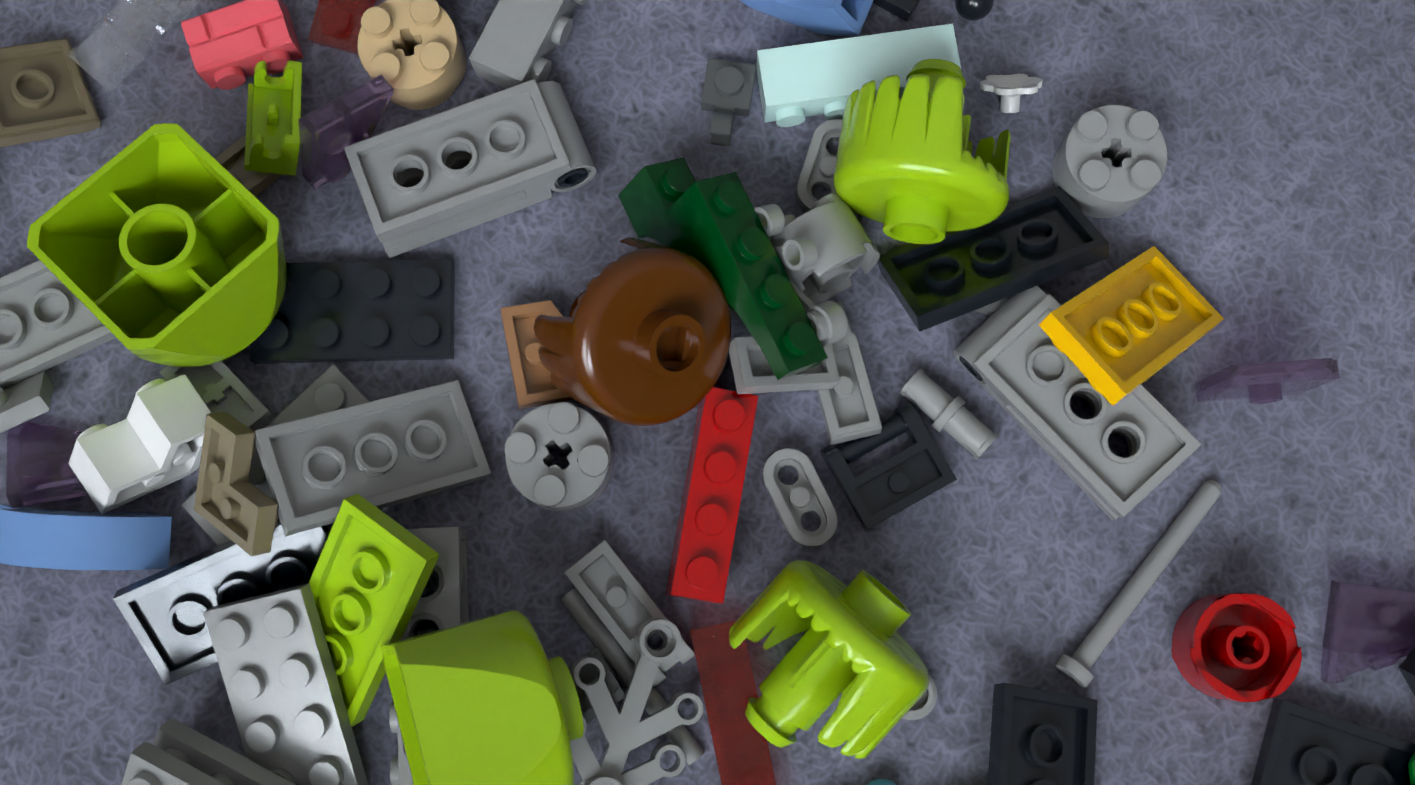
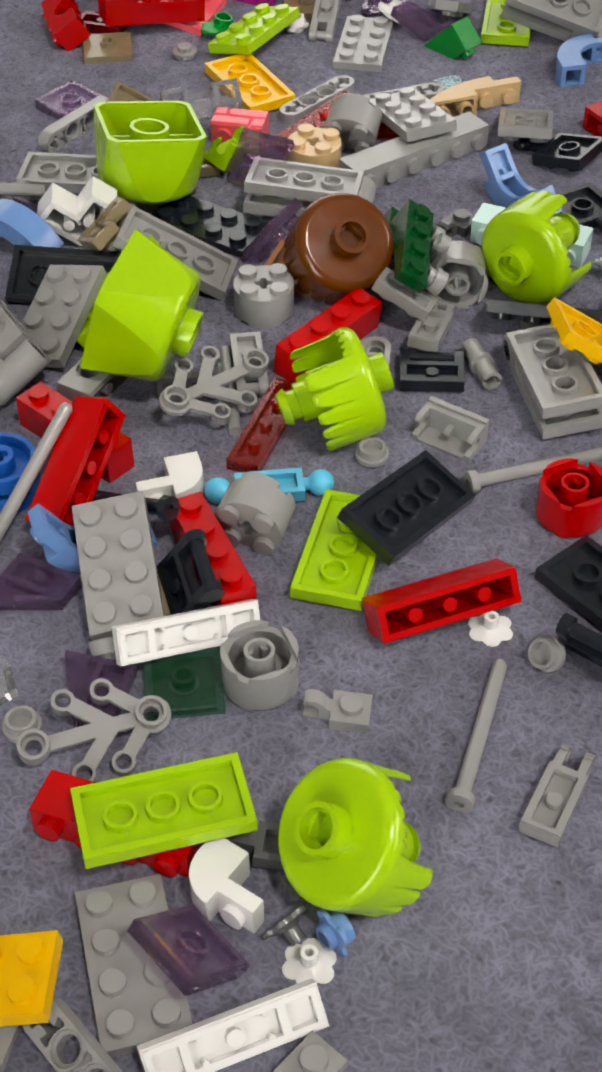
camera: 30 degrees right, 35 degrees down
(484, 308) = (272, 233): none -> clear purple plate
(992, 589) = (451, 429): none -> light grey hinge

